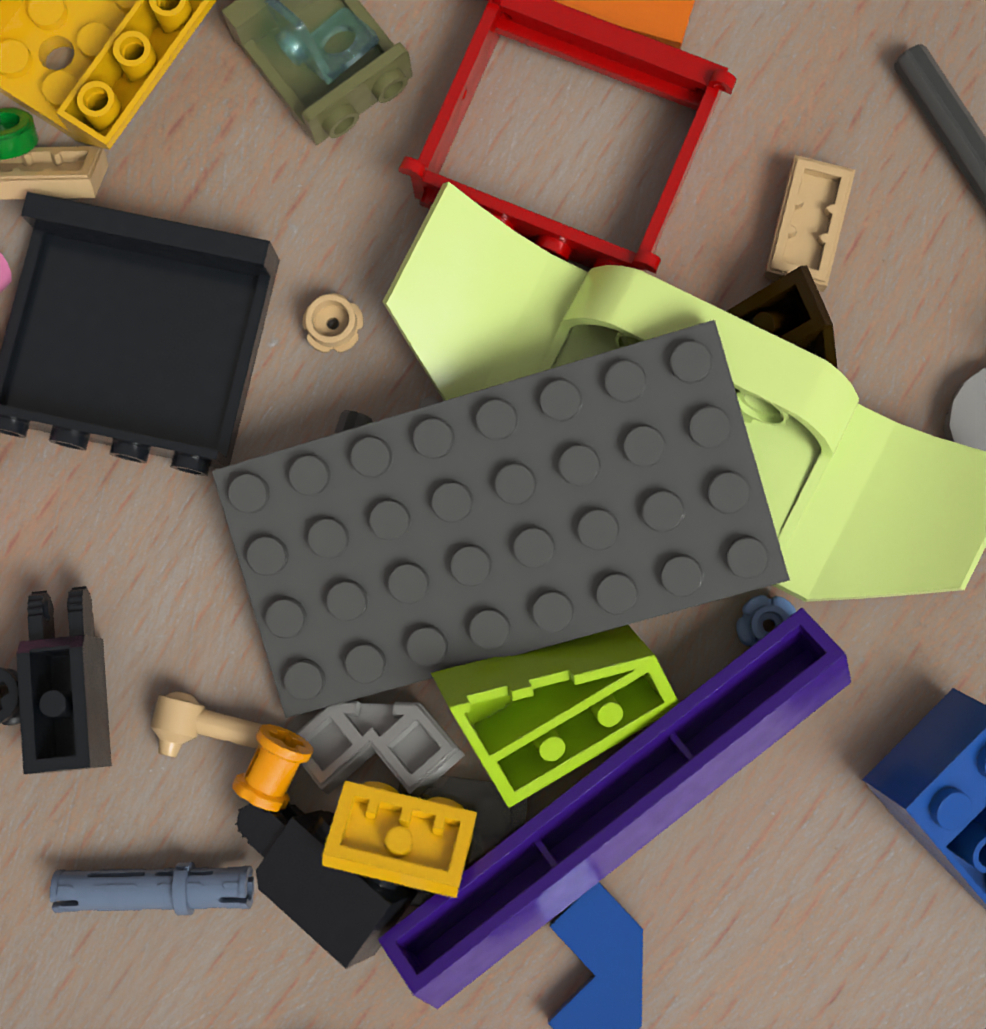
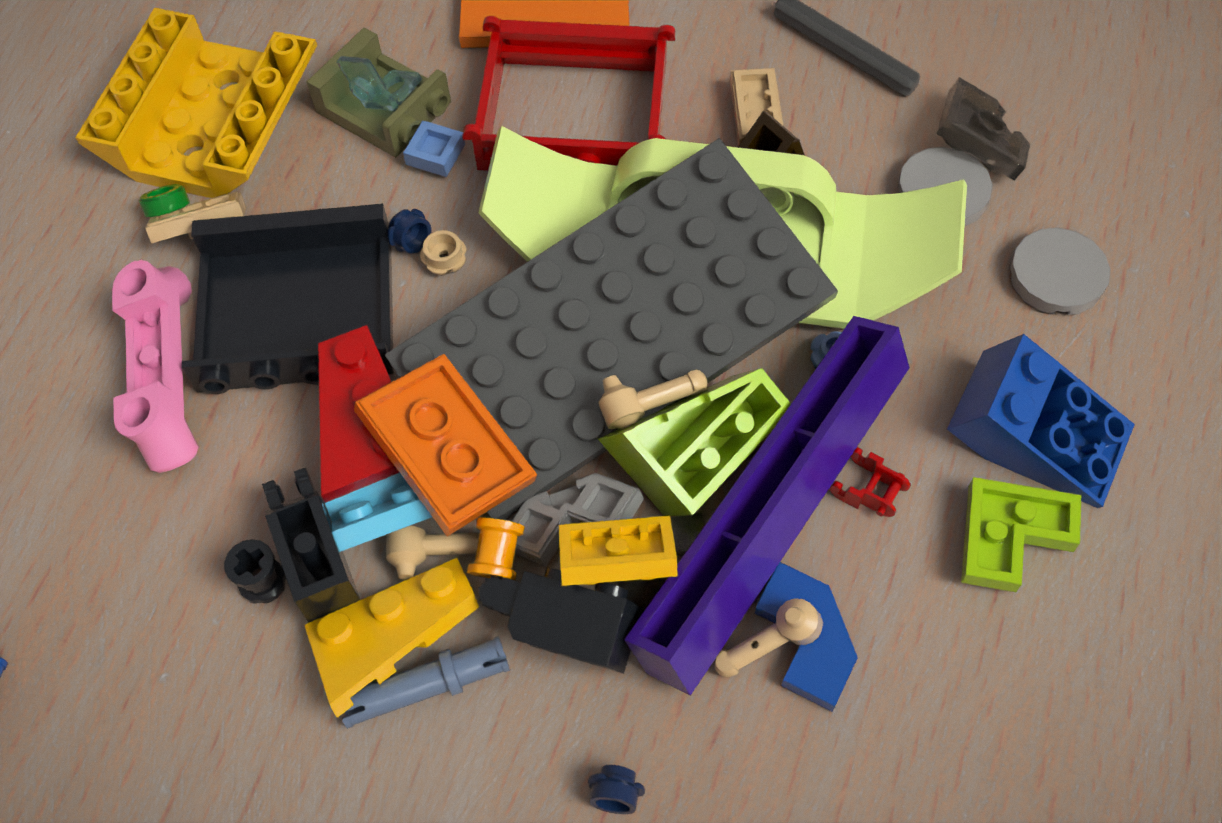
camera: 25 degrees left, 20 degrees down
(122, 813) = (376, 632): none -> yellow wing
(162, 545) = (348, 452): none -> red wing
(162, 663) = (374, 511): none -> medium azure bracket
(246, 626) = (445, 443): none -> orange tile
(298, 276) = (408, 231): none -> dark blue plate
(364, 156) = (434, 148): none -> medium blue plate
(471, 650) = (625, 406): none -> tan piece
(582, 973) = (795, 622): none -> tan piece
(775, 822) = (855, 497): none -> red piece
(881, 915) = (1004, 519): none -> lime plate

